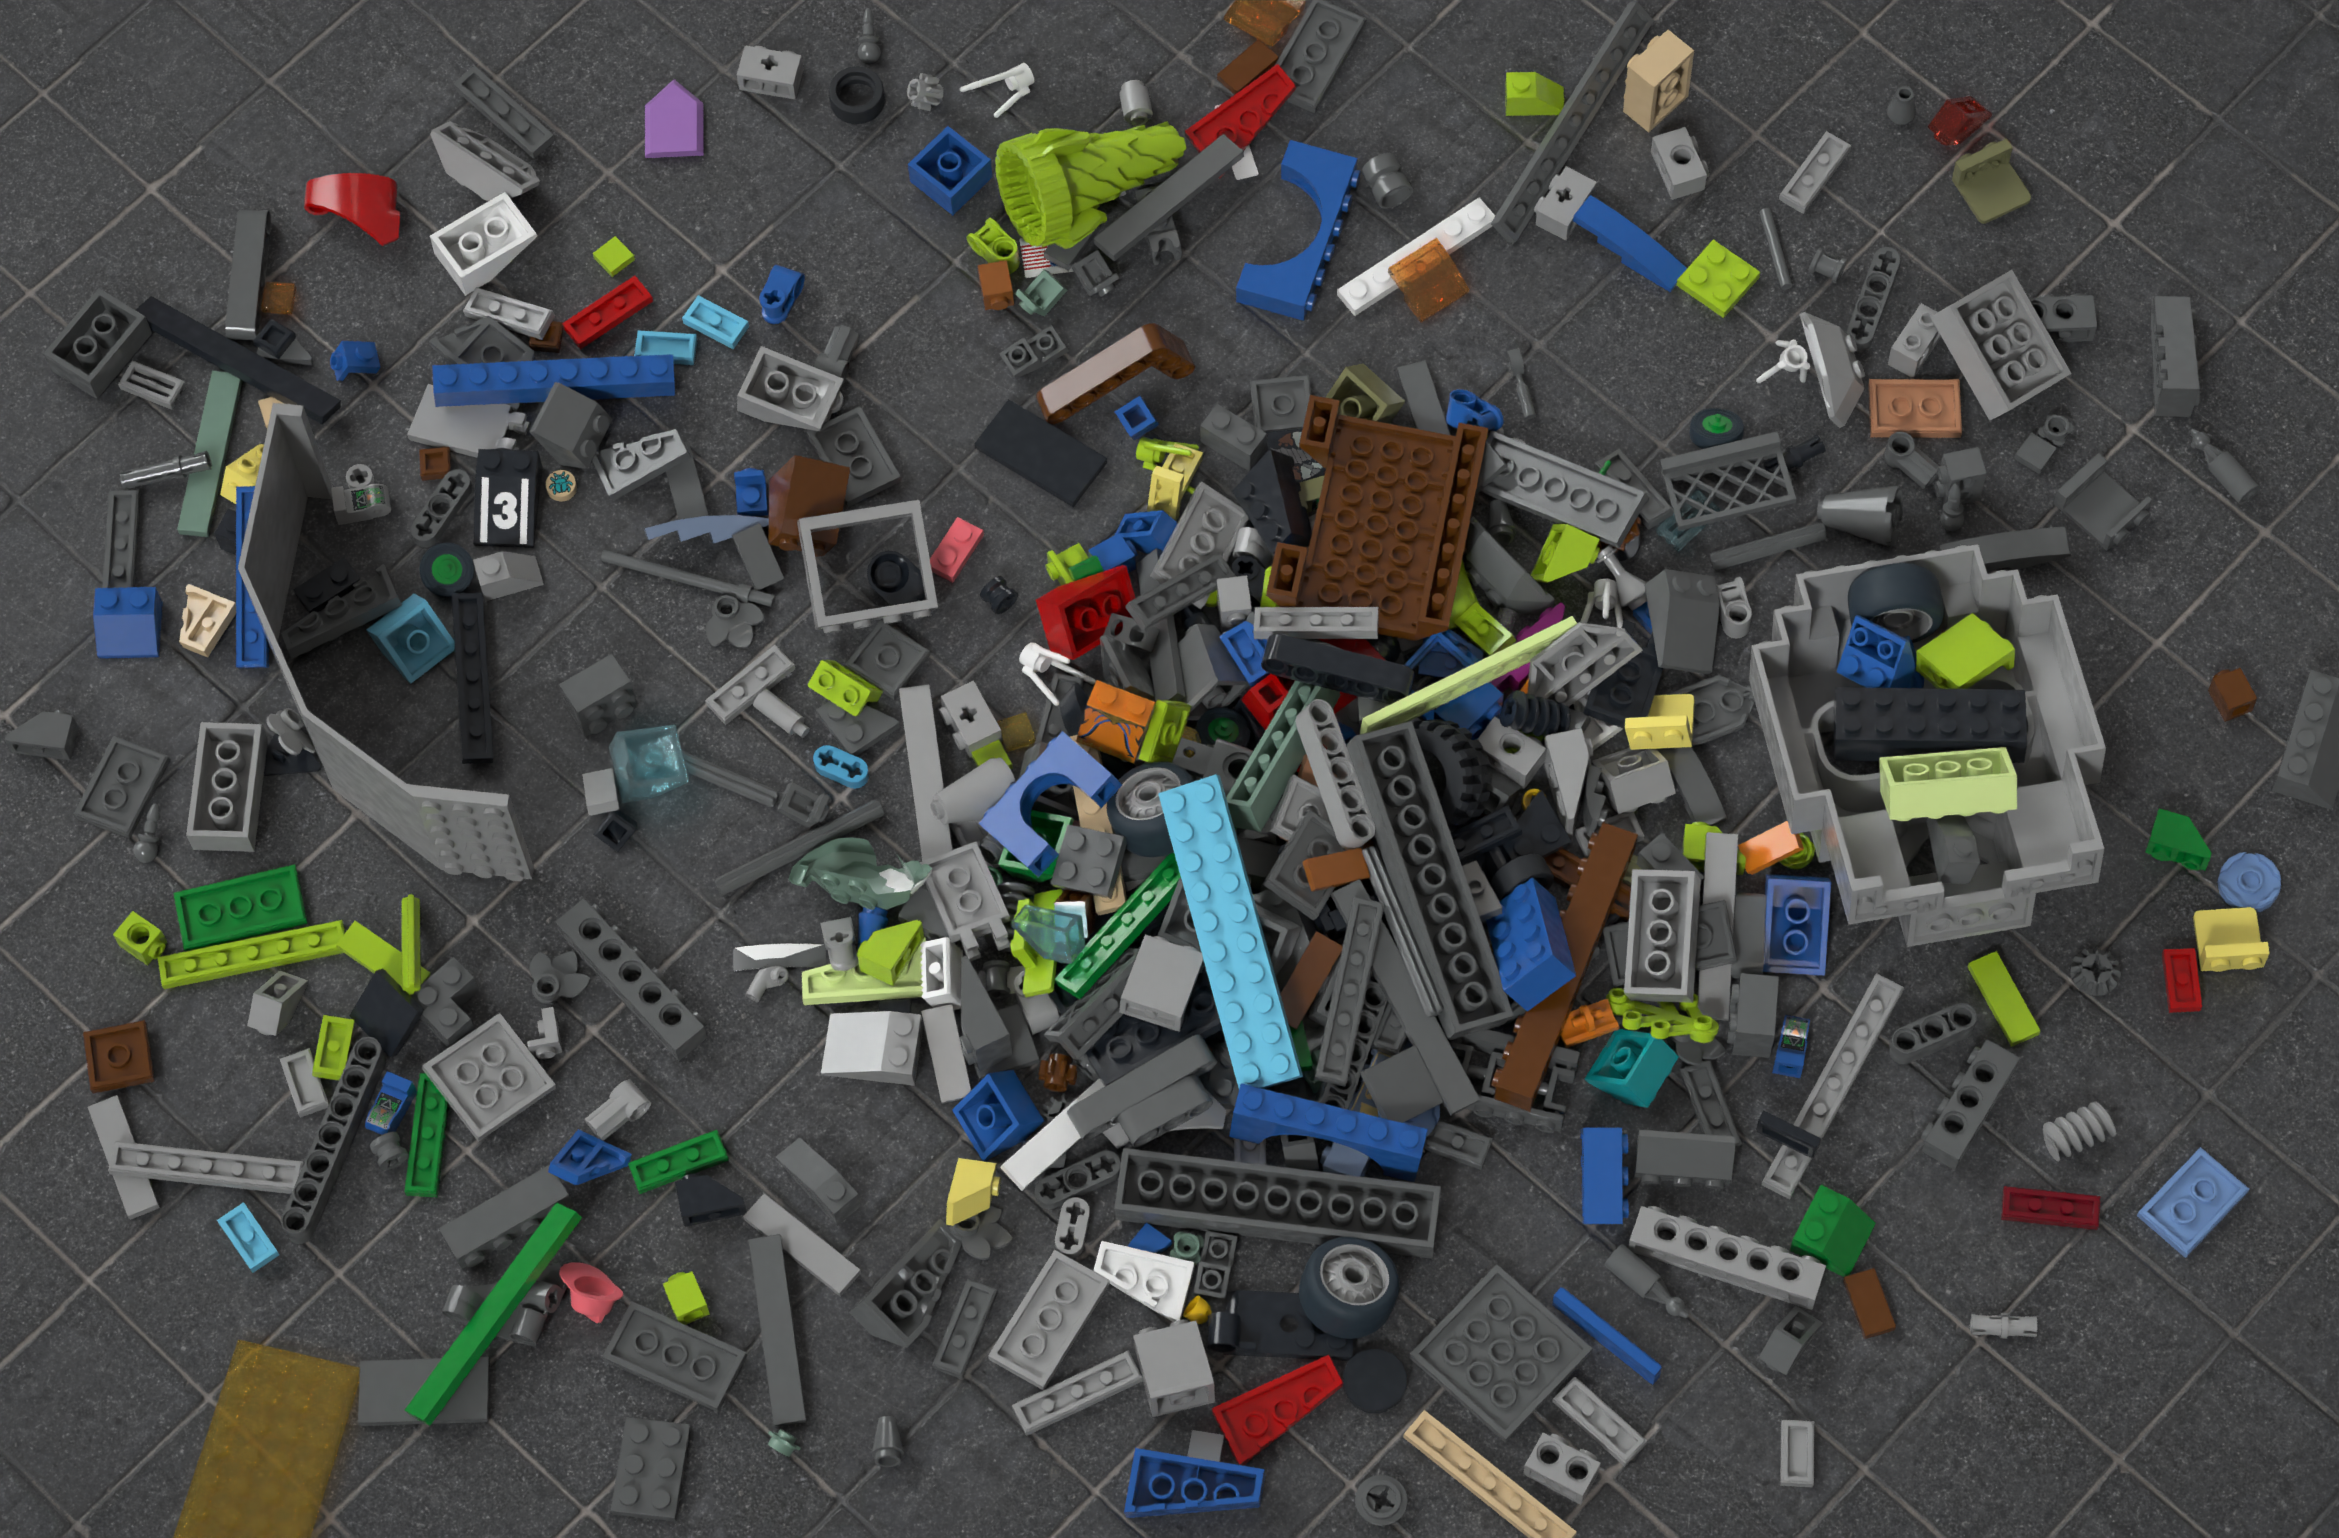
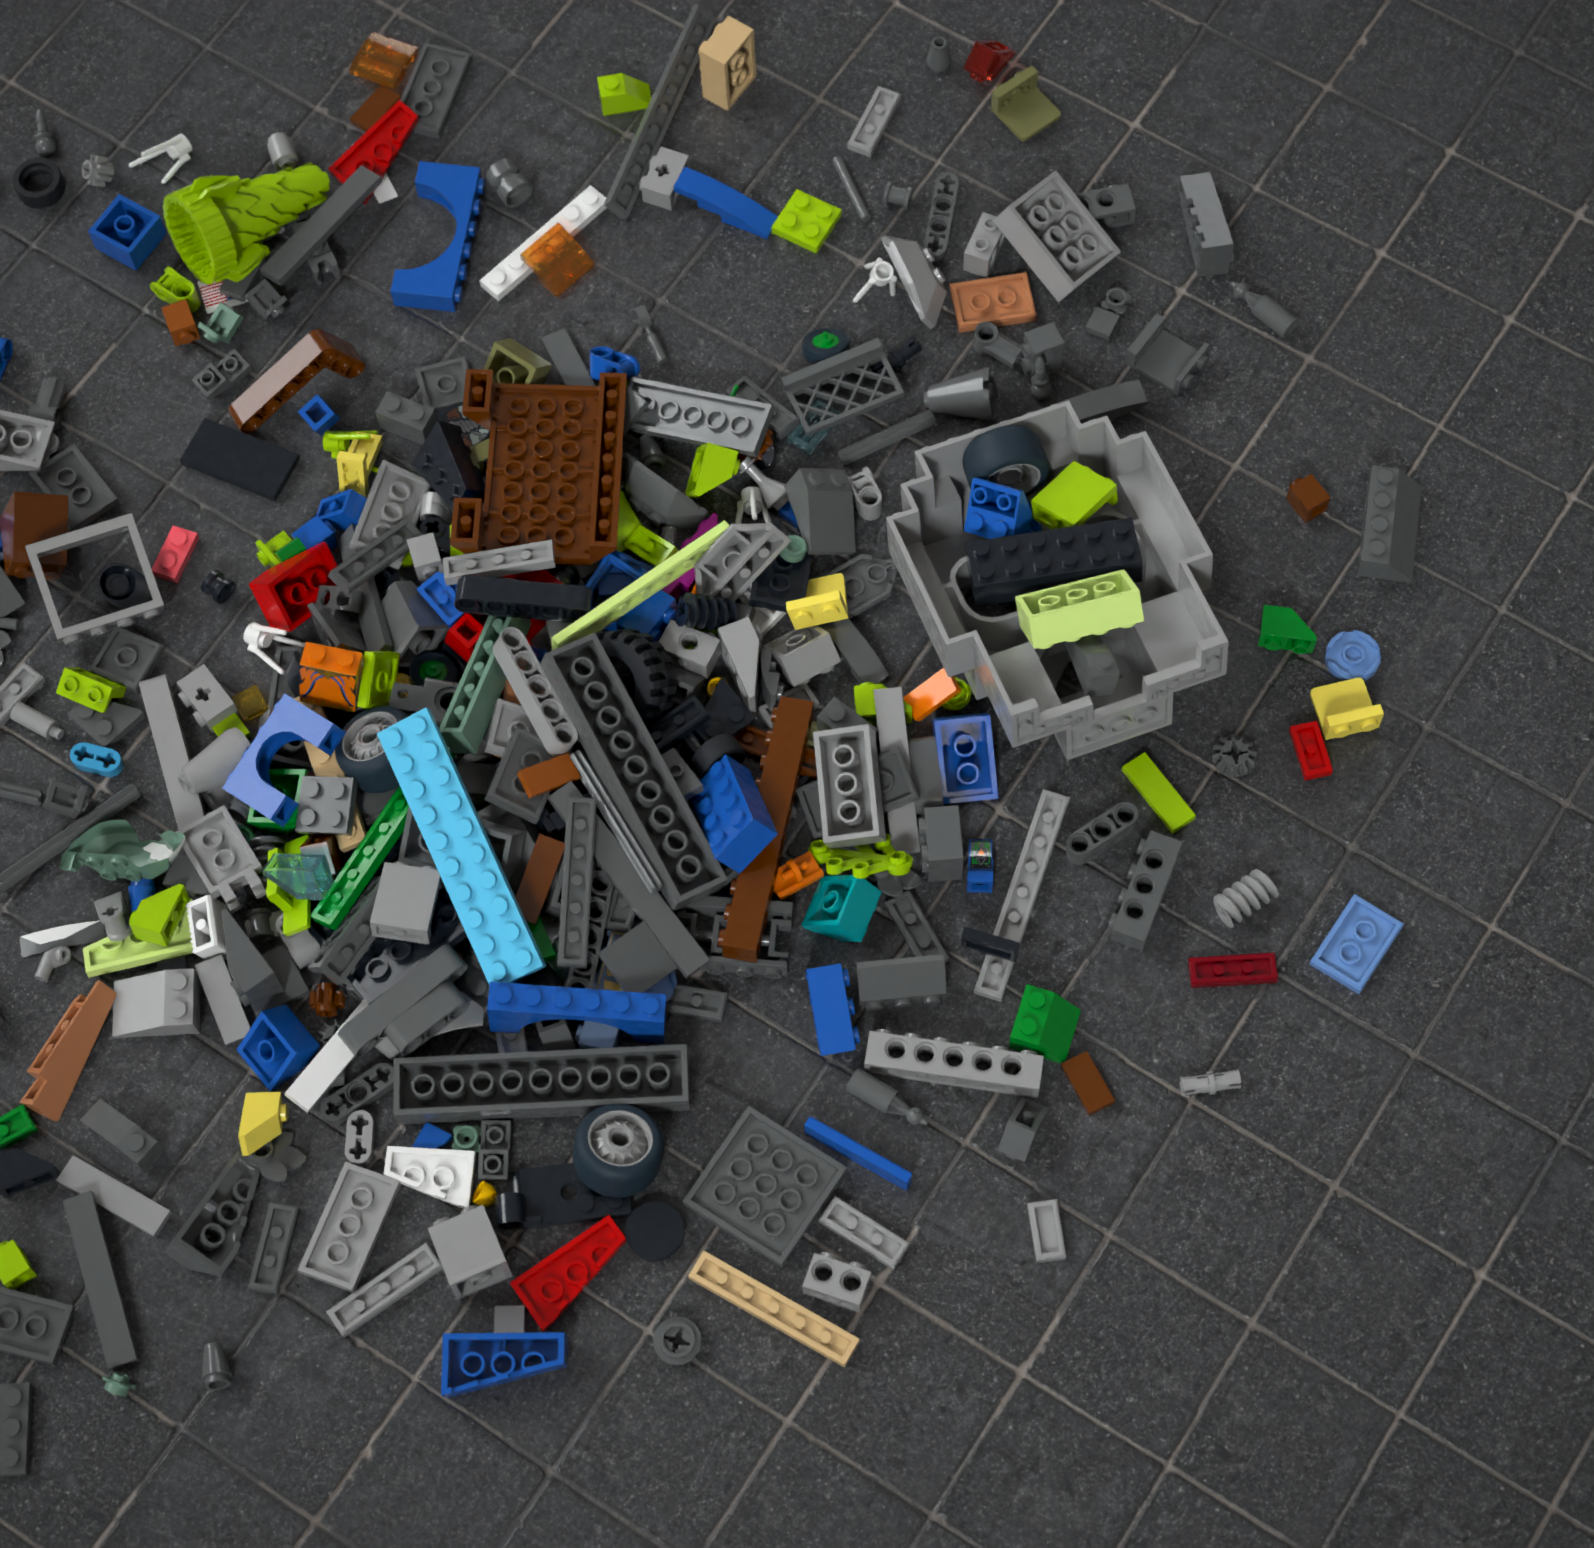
camera: 10 degrees left, 0 degrees up
(770, 1081) = (66, 1052): none -> nougat wedge
(1646, 660) = (795, 550): none -> sand green tile
(1679, 178) = (757, 130): light grey brick -> none

